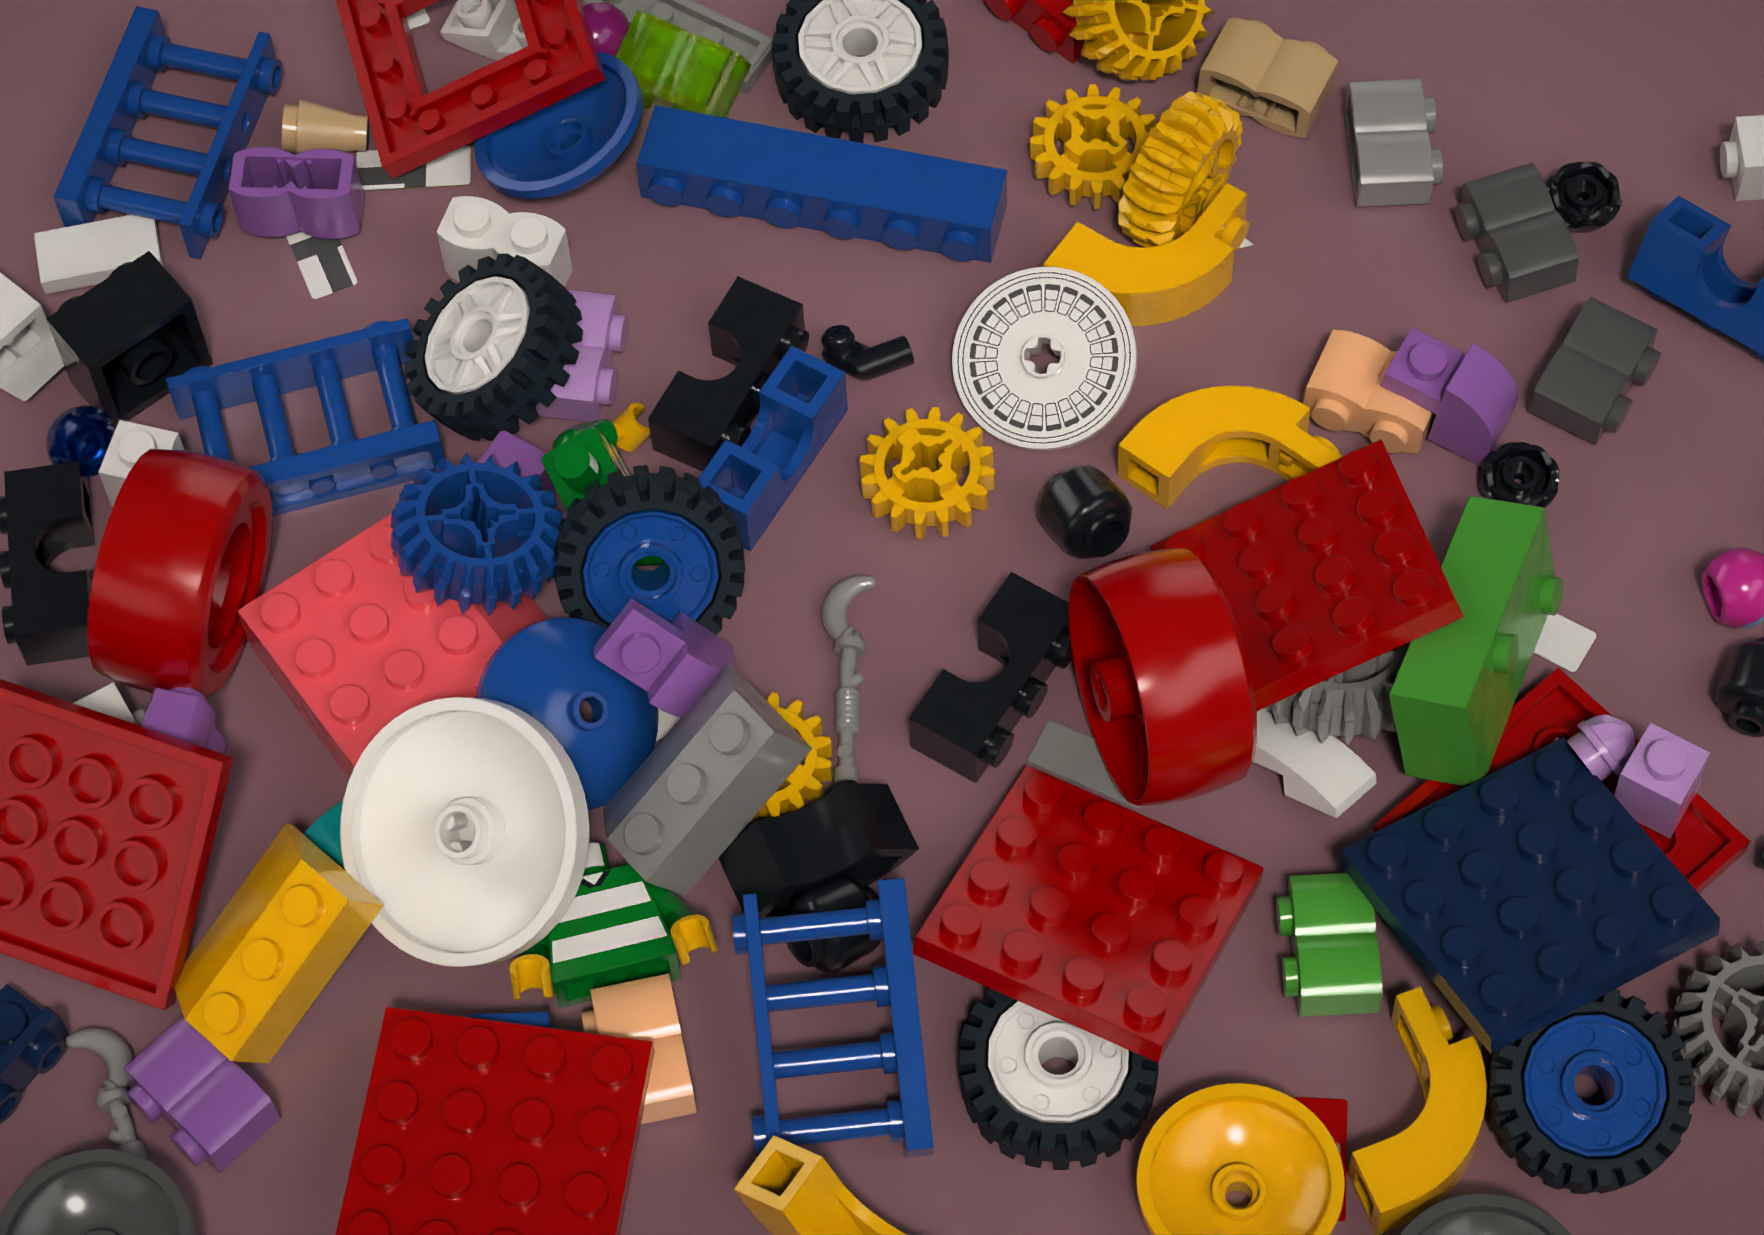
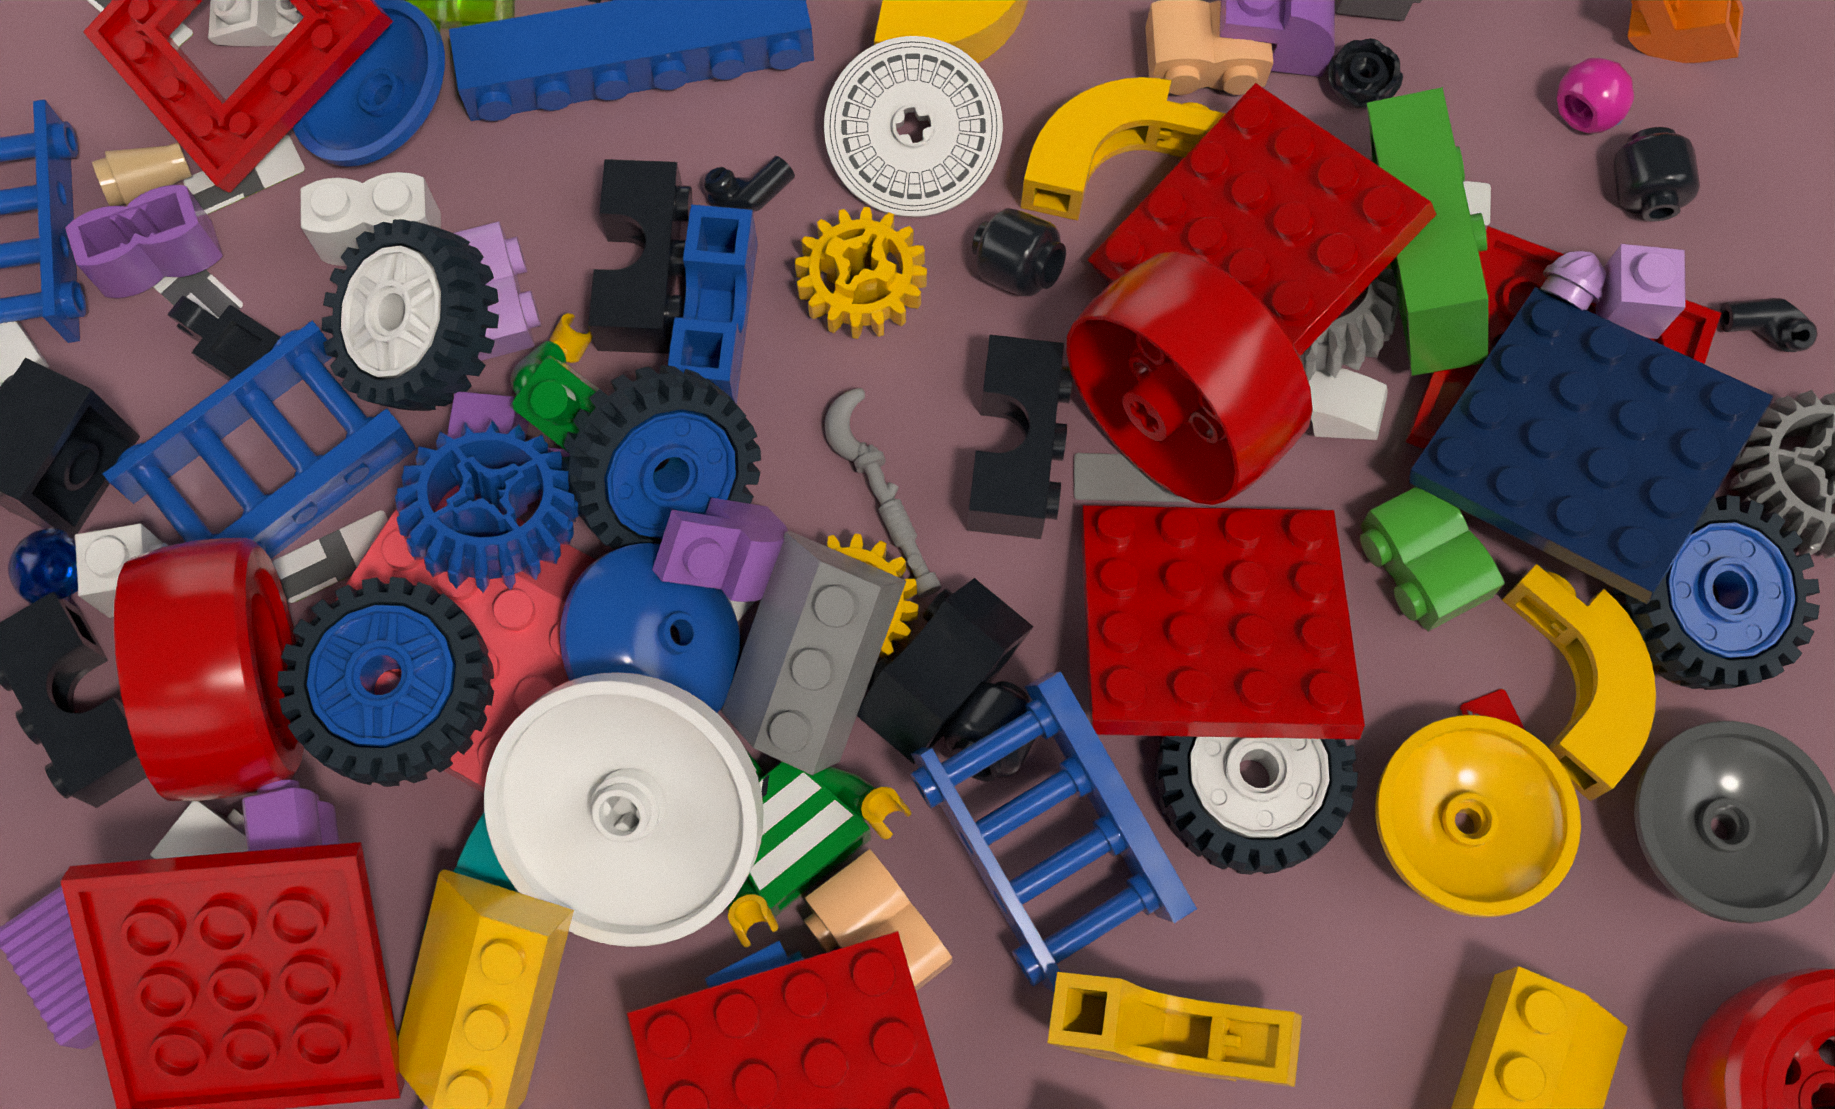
camera: 30 degrees left, 10 degrees up
(317, 535) = (327, 558): none -> sticker
(323, 307) = (225, 342): none -> black plate
(326, 687) = (347, 650): none -> wheel

